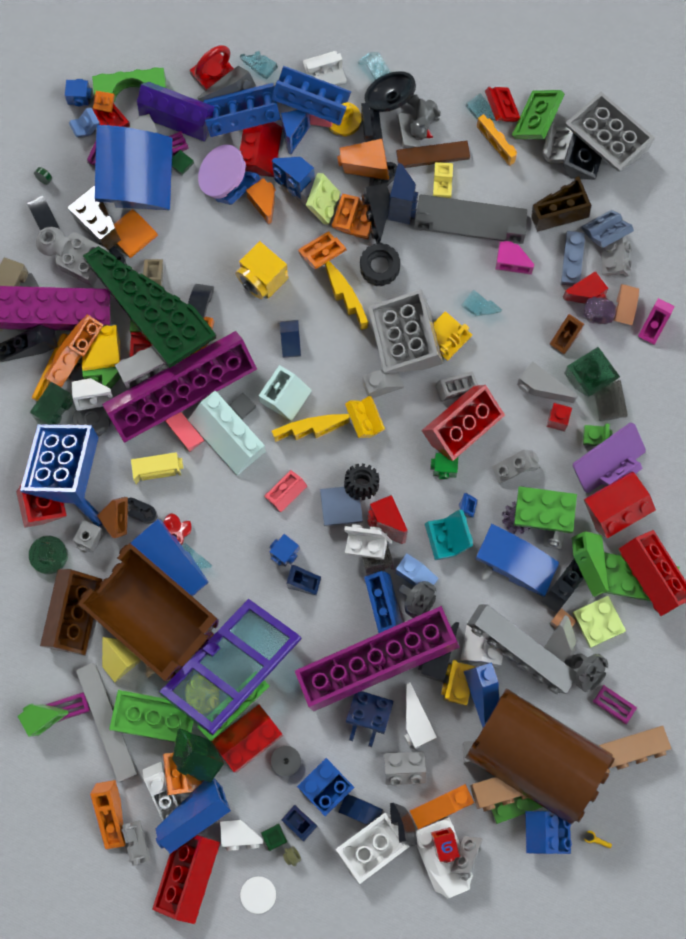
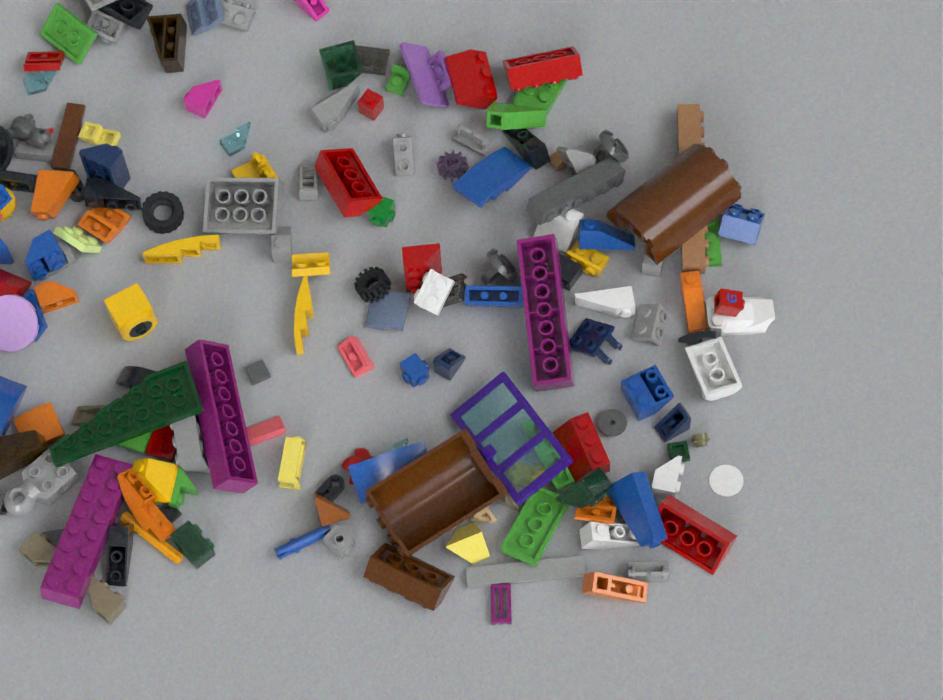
camera: 70 degrees left, 10 degrees down
(39, 510) = (290, 577): red slope -> none
(39, 718) = (503, 626): bright green slope -> none
(48, 554) = (343, 586): clear green tile -> none
(60, 462) = (257, 544): blue slope -> none
(89, 394) = (196, 501): white slope -> none
(95, 416) = (219, 513): dark grey tile -> none
(226, 433) = (281, 390): light aqua slope -> none
(284, 393) = (260, 328): light aqua slope -> none
(290, 338) = (206, 310): dark blue slope -> none
(321, 250) = (130, 256): orange slope -> none
(359, 810) = (676, 371): dark blue slope -> none
(414, 571) = (473, 265): light blue slope -> none
(449, 535) = (450, 223): teal bracket -> none
(468, 504) = (425, 204): blue slope -> none
(468, 852) = (750, 293): light grey hinge -> none
(471, 219) = (151, 119): dark grey bracket -> none
(497, 139) = (77, 77): light orange plate -> none
(545, 509) = (454, 137): bright green plate -> none
(567, 334) = (293, 74): dark orange slope -> none
(572, 258) = (221, 50): sand blue plate -> none
(586, 288) = (258, 45): red slope -> none
(597, 840) = (758, 190): yellow hand -> none
(599, 310) = (283, 40): clear purple gear -> none
(599, 621) = (569, 130): yellowish green plate -> none
(600, 695) = (639, 153): magenta tile -> none
(627, 304) = (282, 17): nougat slope -> none

